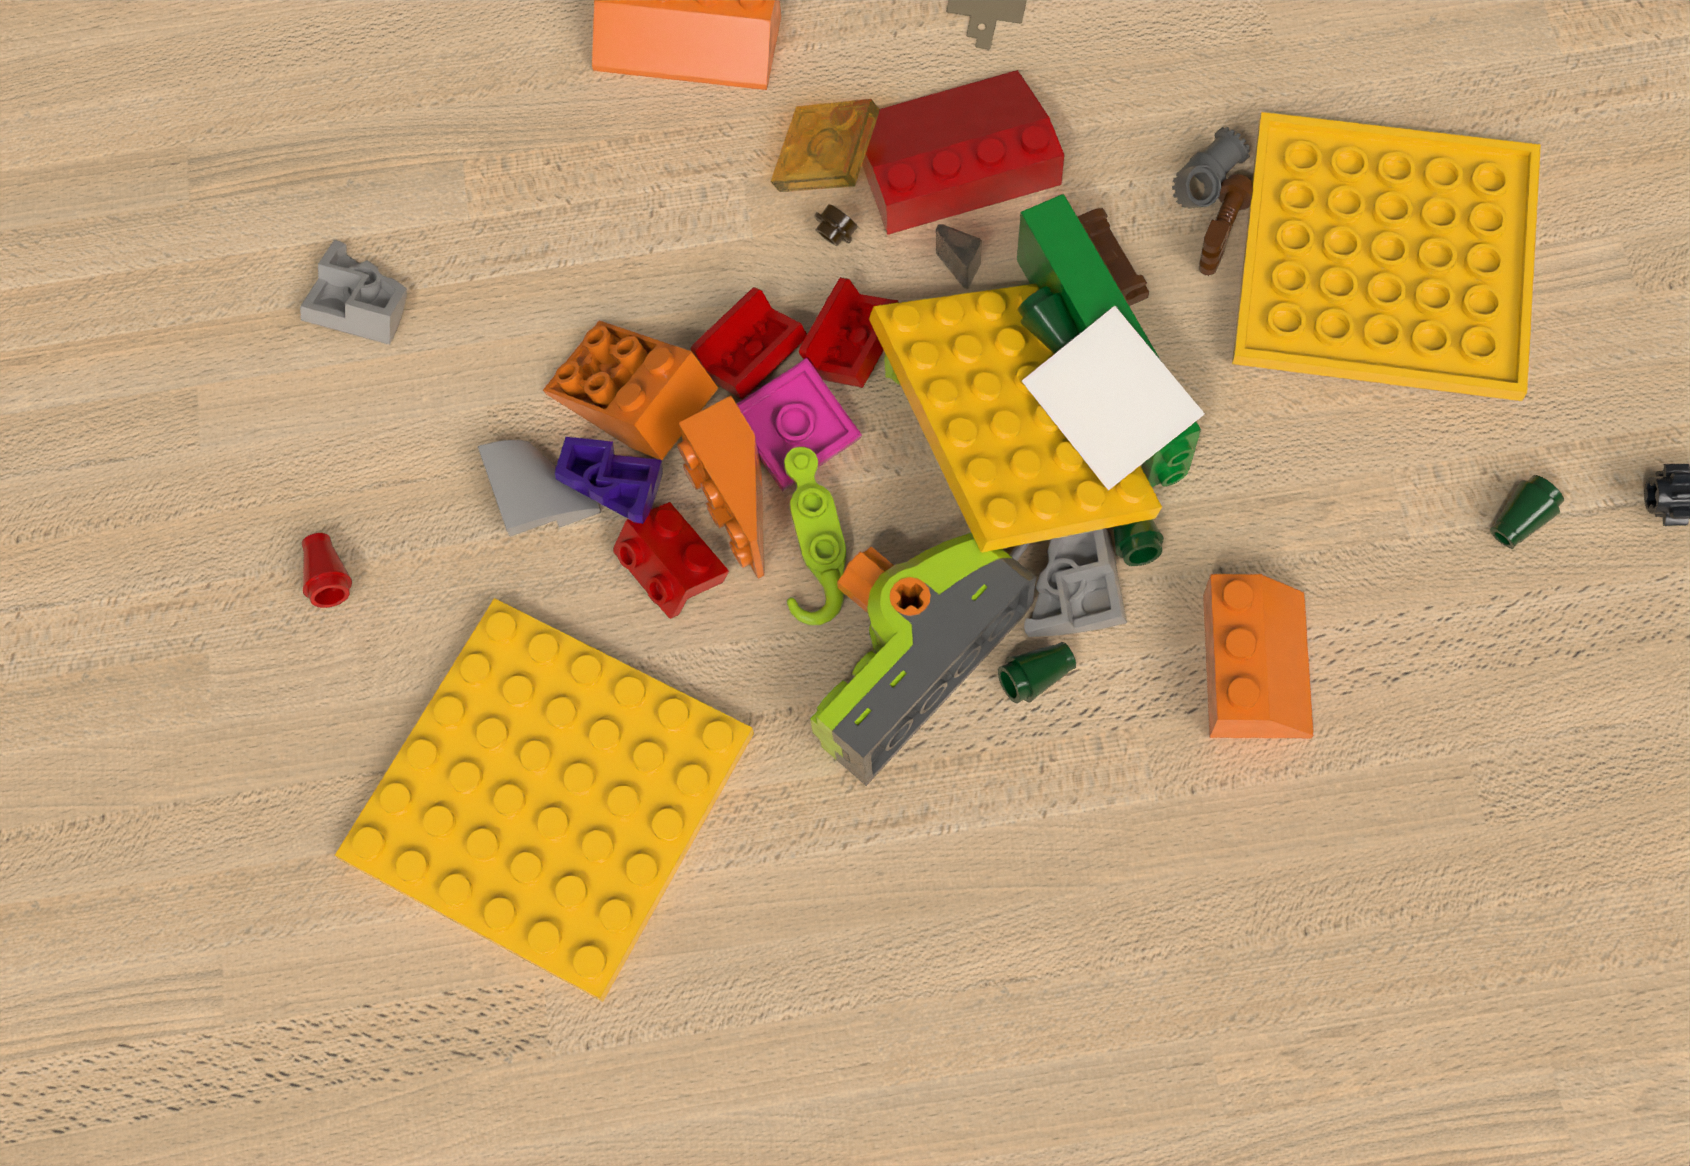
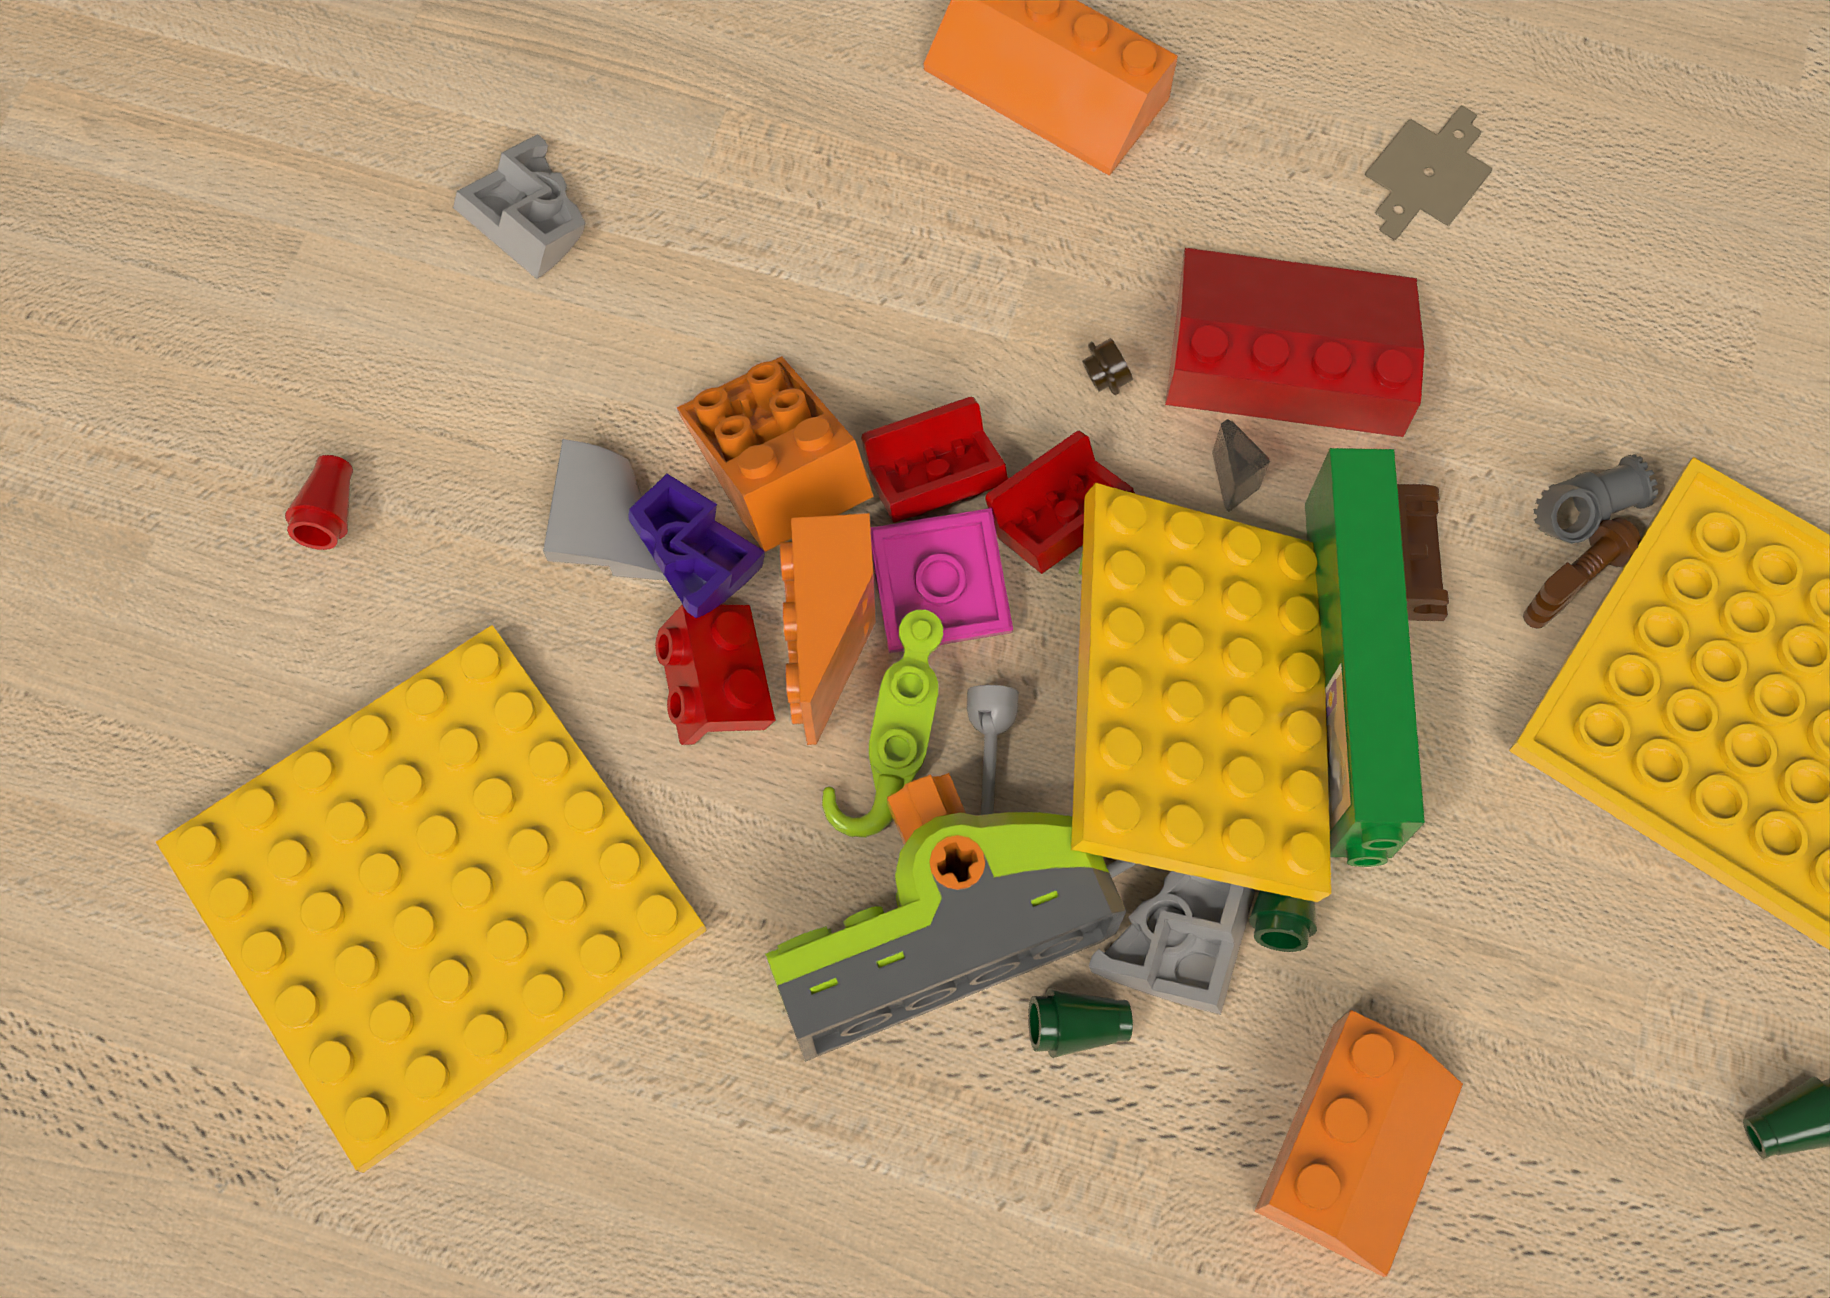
camera: 20 degrees right, 0 degrees up
(825, 145) = (1141, 268): clear yellow plate -> none
(875, 496) = (991, 712): none -> light grey hinge
(1048, 319) = (1303, 600): dark green cone -> none
(1112, 397) = (1332, 731): white sticker -> none

